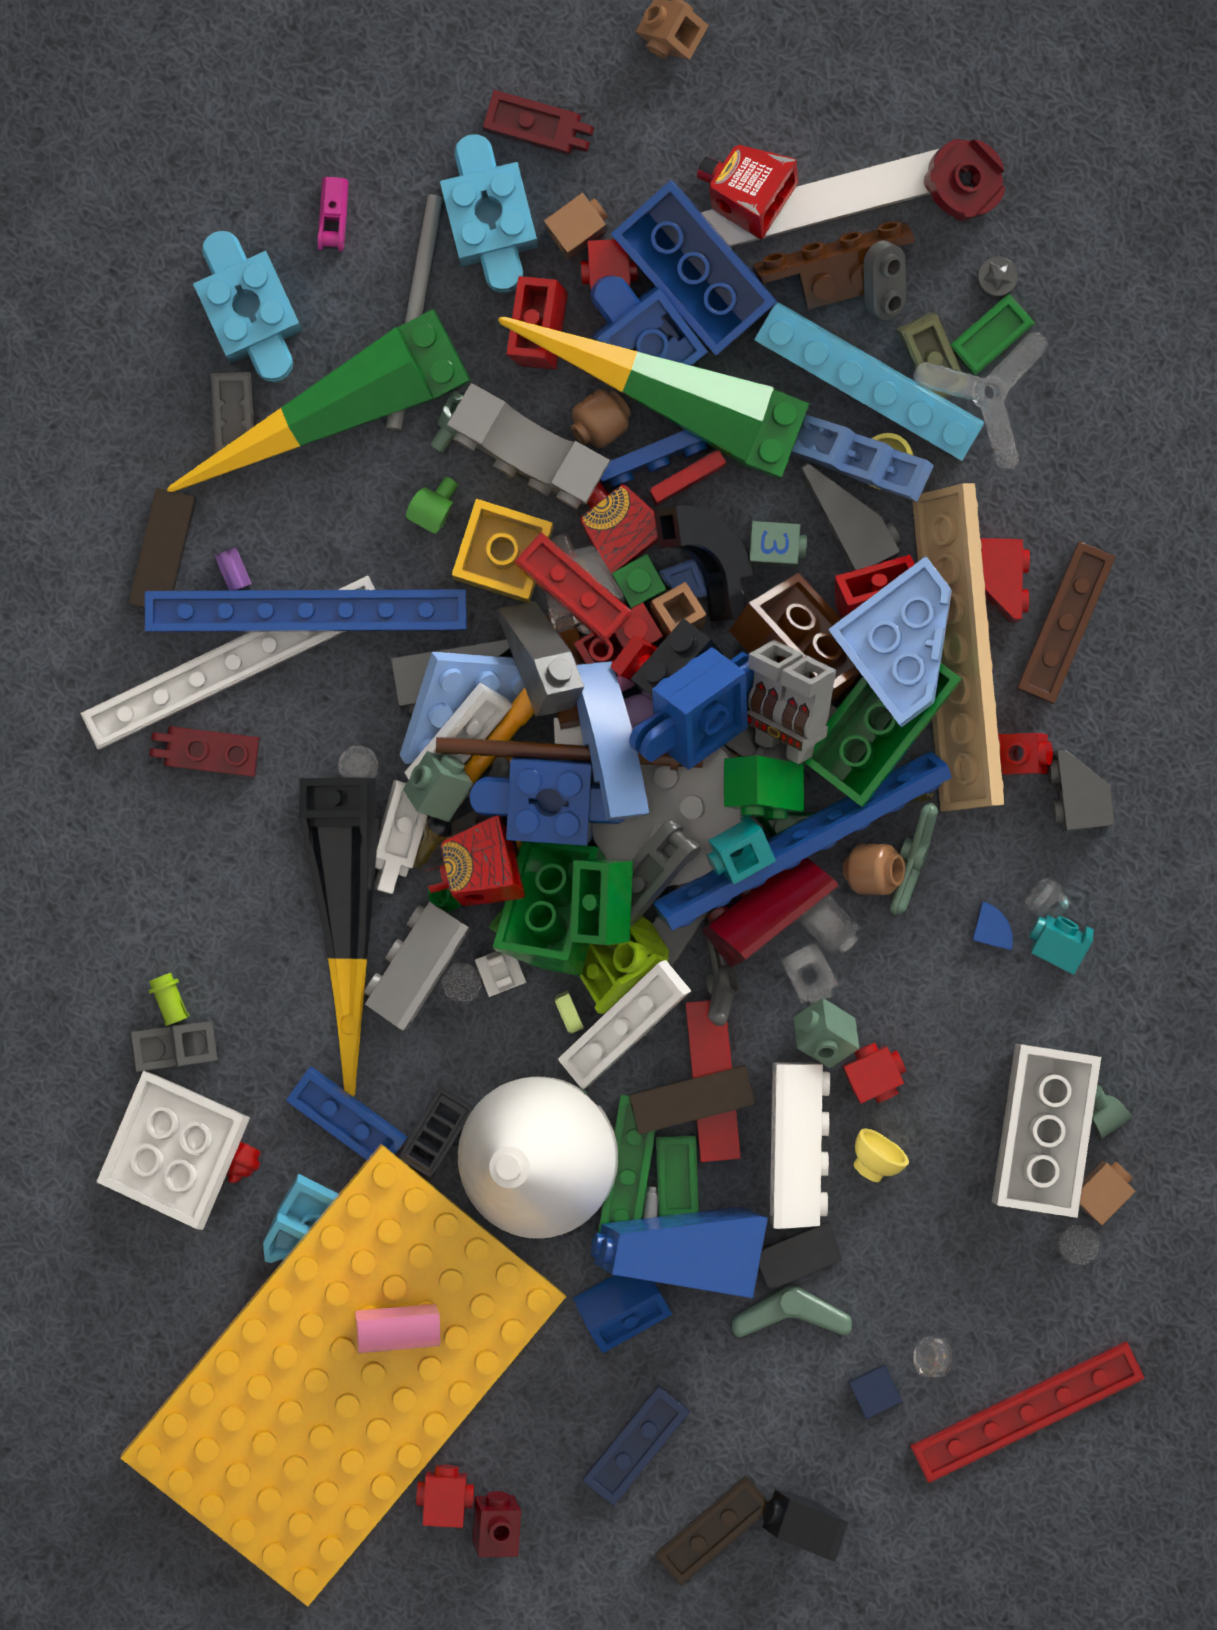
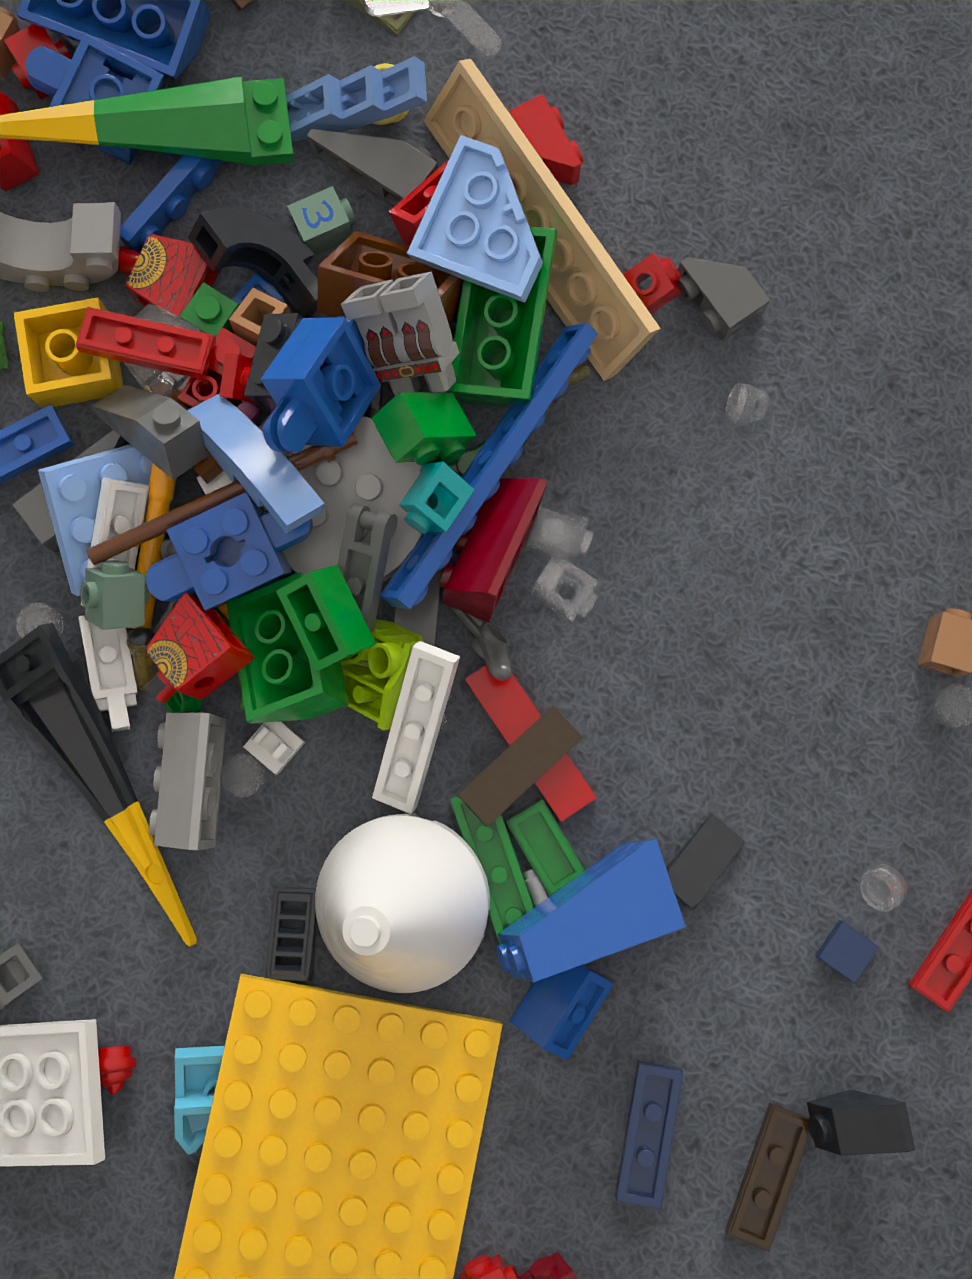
camera: 25 degrees left, 5 degrees down
(343, 1115) = (192, 965): blue plate -> none
(397, 1328) = (348, 1154): bright pink brick -> none
(568, 1012) = (359, 748): yellowish green tile -> none
(600, 418) = (102, 184): medium nougat head -> none
(687, 477) = (213, 195): red tile -> none
(794, 1303) = (717, 912): sand green piece -> none
(796, 1144) = (642, 754): white slope -> none
(826, 1033) = (612, 633): sand green brick -> none
(869, 381) = (326, 33): medium azure brick -> none
(874, 869) = (572, 460): medium nougat head -> none
(874, 1073) = (678, 648): red brick -> none
(878, 1156) = (724, 725): light yellow piece -> none
(914, 854) = (601, 428): sand green piece -> none
(992, 927) = (710, 458): blue tile -> none
(1046, 1130) = (868, 612): white slope -> none
(1060, 942) = (780, 434): teal brick -> none
(1065, 622) = (622, 155): reddish brown plate -> none
(1108, 1113) = (910, 568): sand green piece -> none

